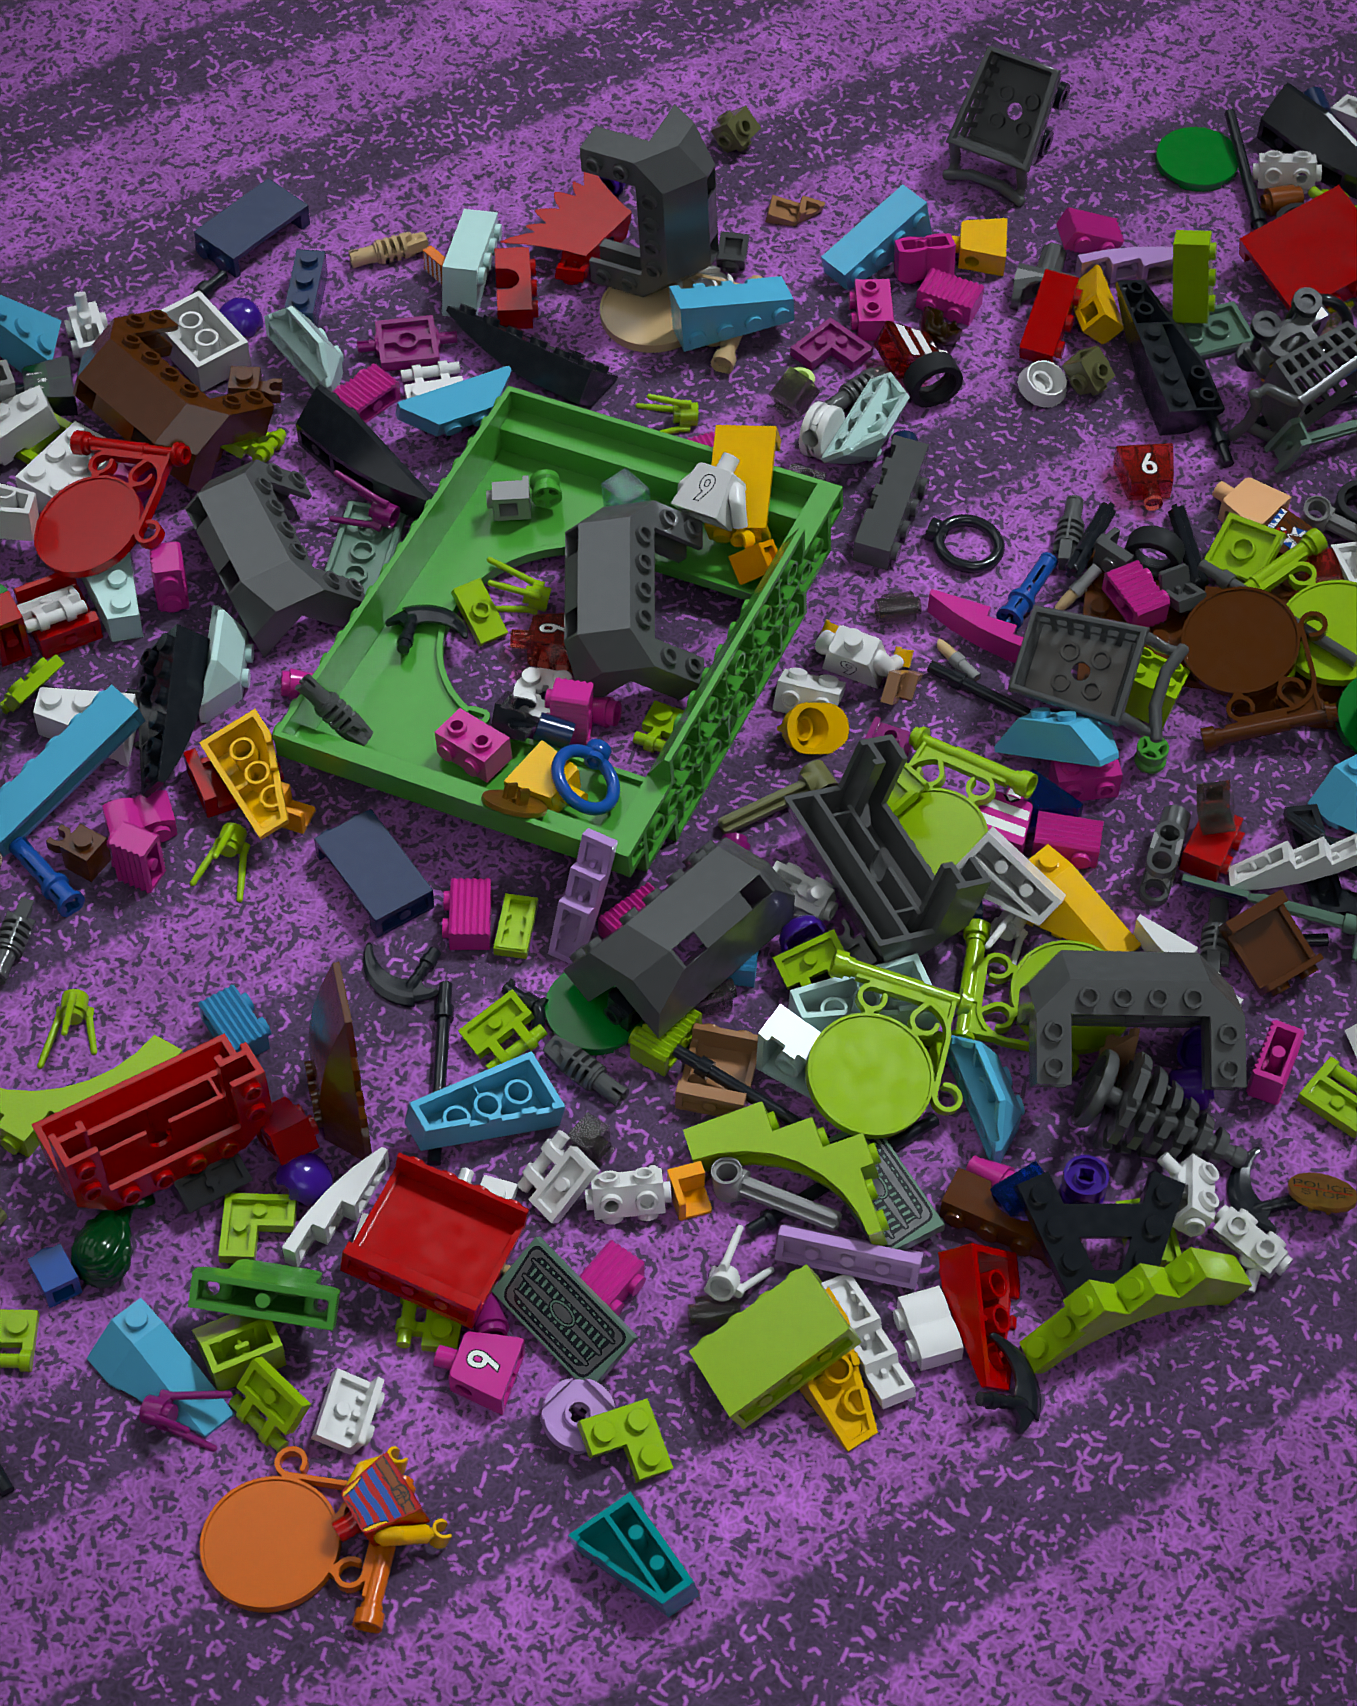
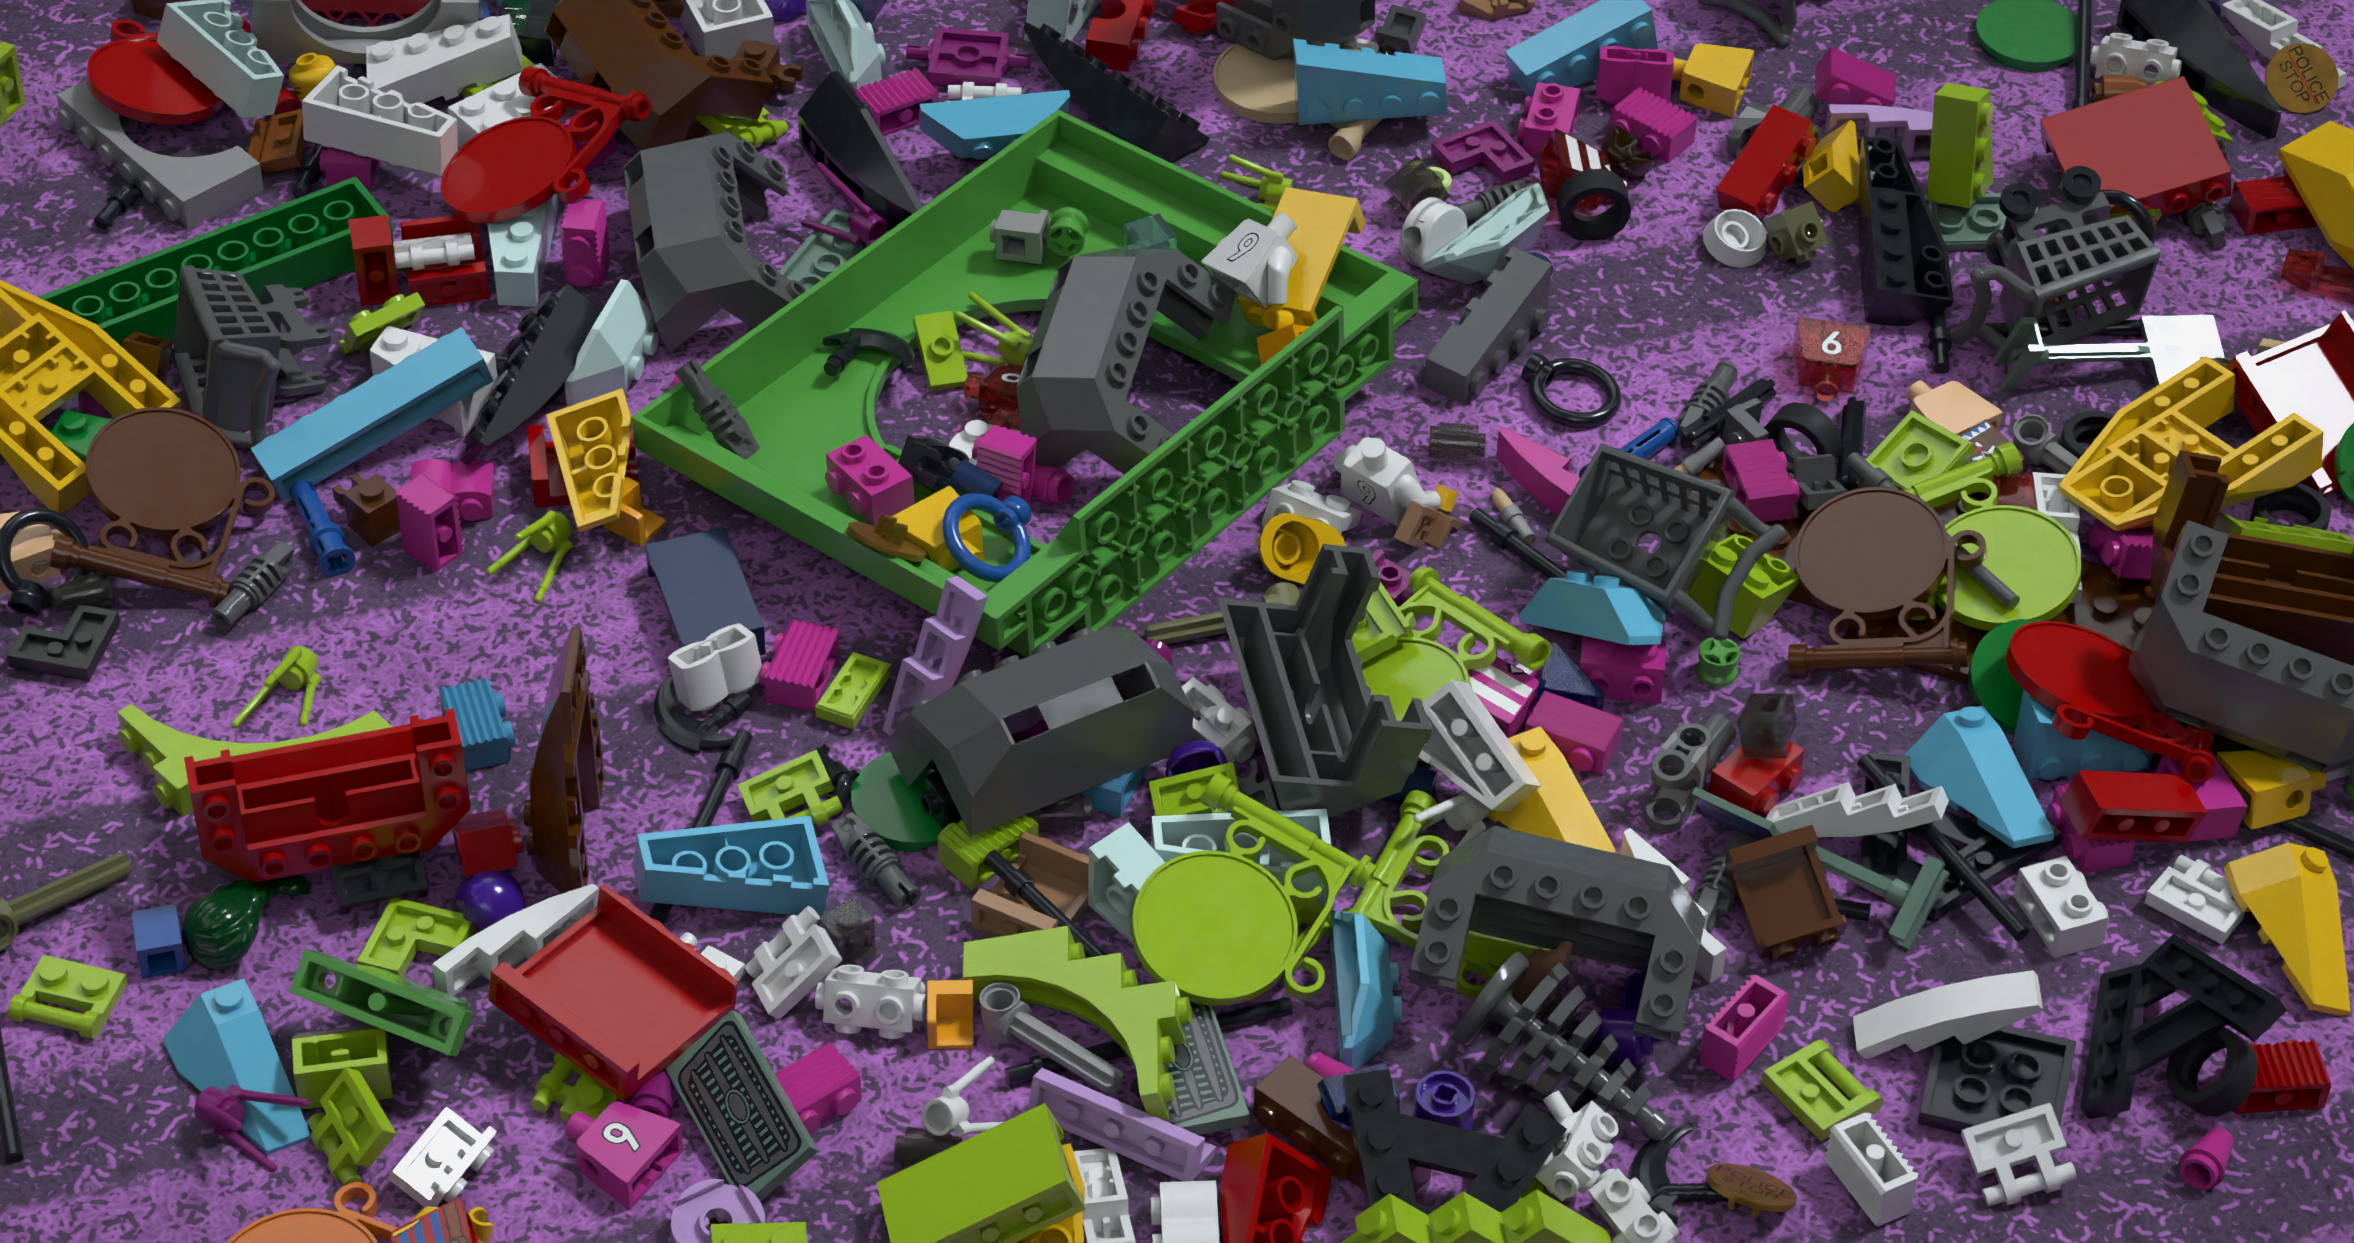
camera: 15 degrees right, 10 degrees down
(407, 933) = (716, 667): none -> white brick

